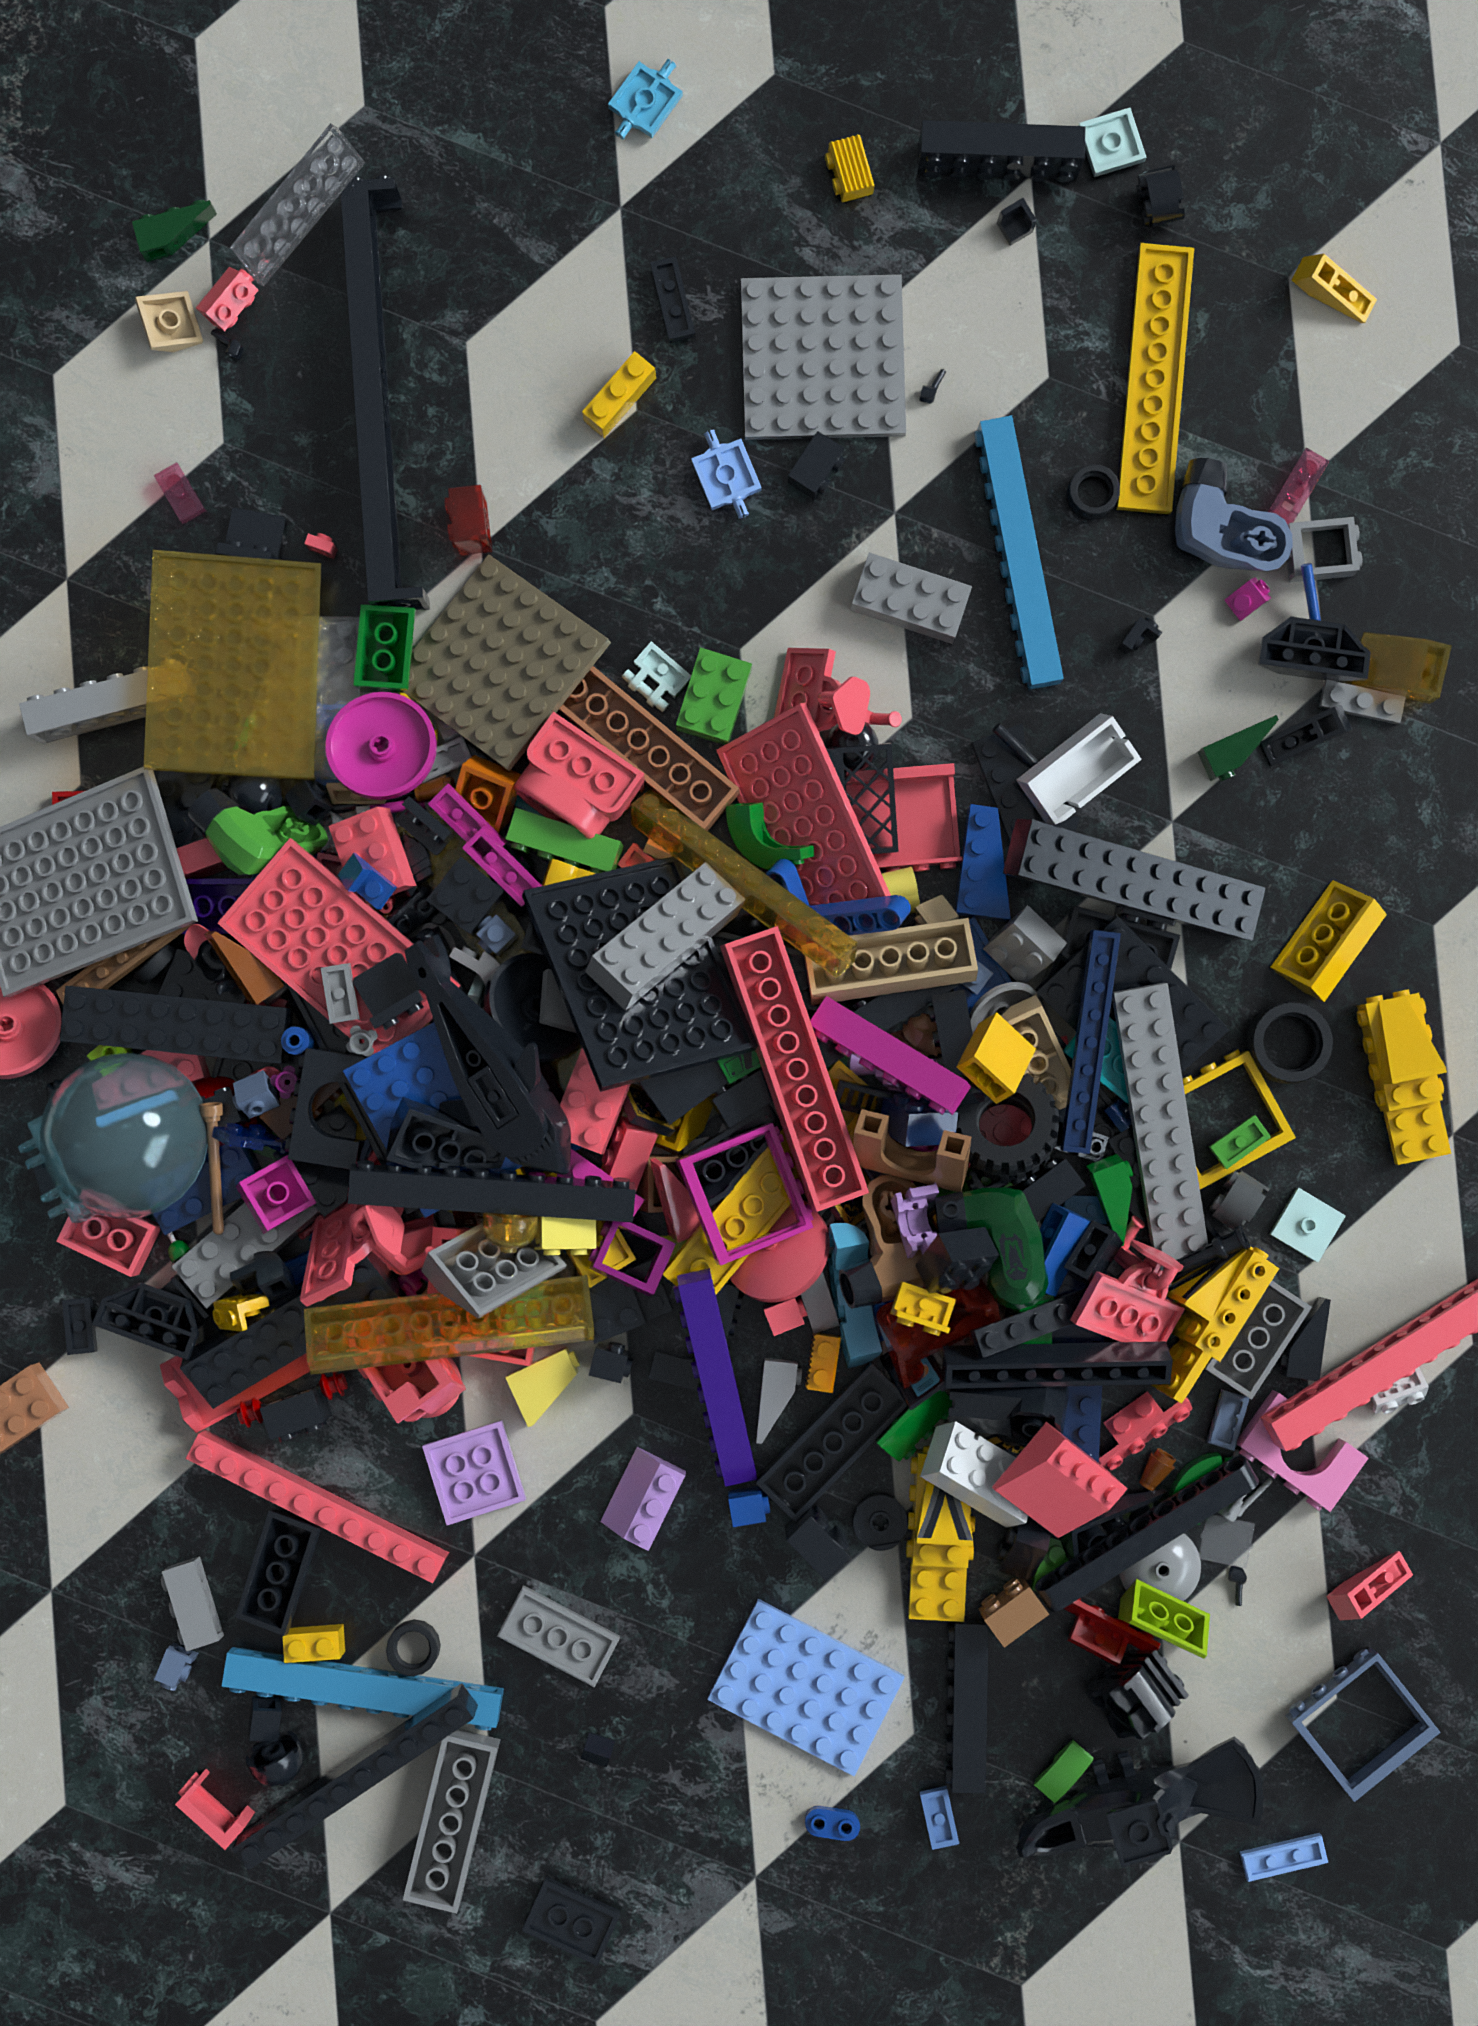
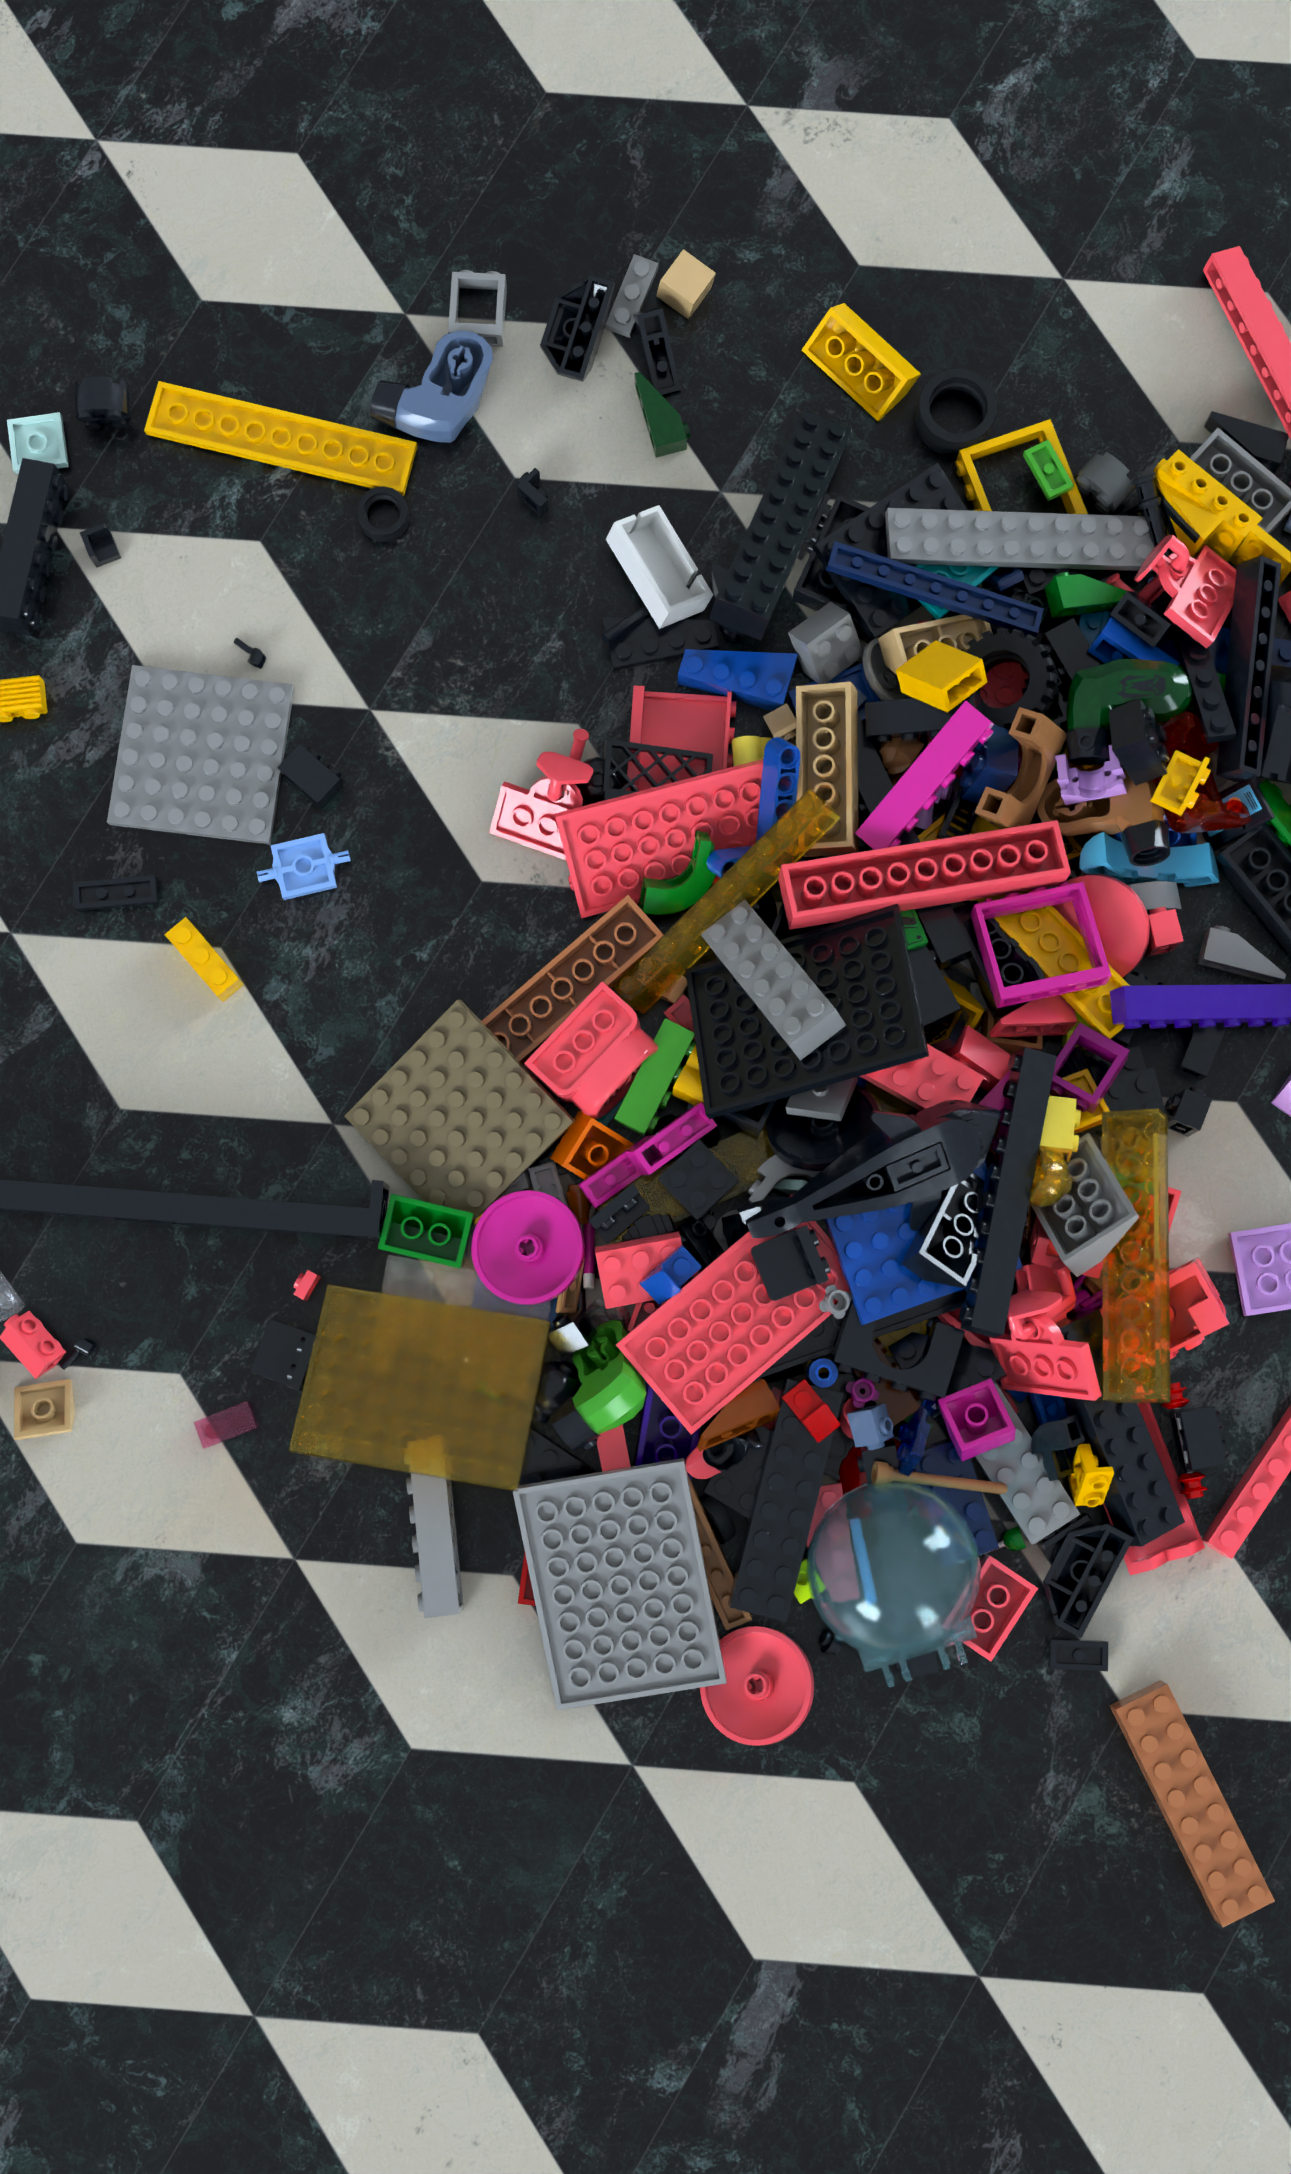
camera: 75 degrees left, 5 degrees down
(256, 1033) = (811, 1410): none -> red slope
(340, 993) = (784, 1316): light grey plate -> none
(469, 519) = (308, 1127): clear red brick -> none
(495, 935) = (741, 1157): sand blue brick -> none
(542, 1382) = (1200, 1184): light yellow slope -> none
(662, 670) = (492, 959): light aqua plate -> none
(714, 696) = (528, 910): bright green brick -> none
(823, 1362) = (1211, 904): light orange brick -> none
(911, 598) = (460, 703): light grey brick -> none
(1019, 552) = (432, 593): dark azure brick -> none
(1248, 598) = (513, 384): dark pink bracket -> none
(1299, 485) = (410, 320): clear pink plate -> none
(1307, 1224) = (1133, 425): light aqua plate -> none
(1310, 591) = (518, 323): blue bar -> none
(1333, 286) = (220, 258): yellow slope -> none
(1379, 752) = (685, 284): none -> tan head
(1405, 666) = (606, 245): clear yellow slope -> none
(1405, 1075) = (1001, 309): yellow wedge -> none

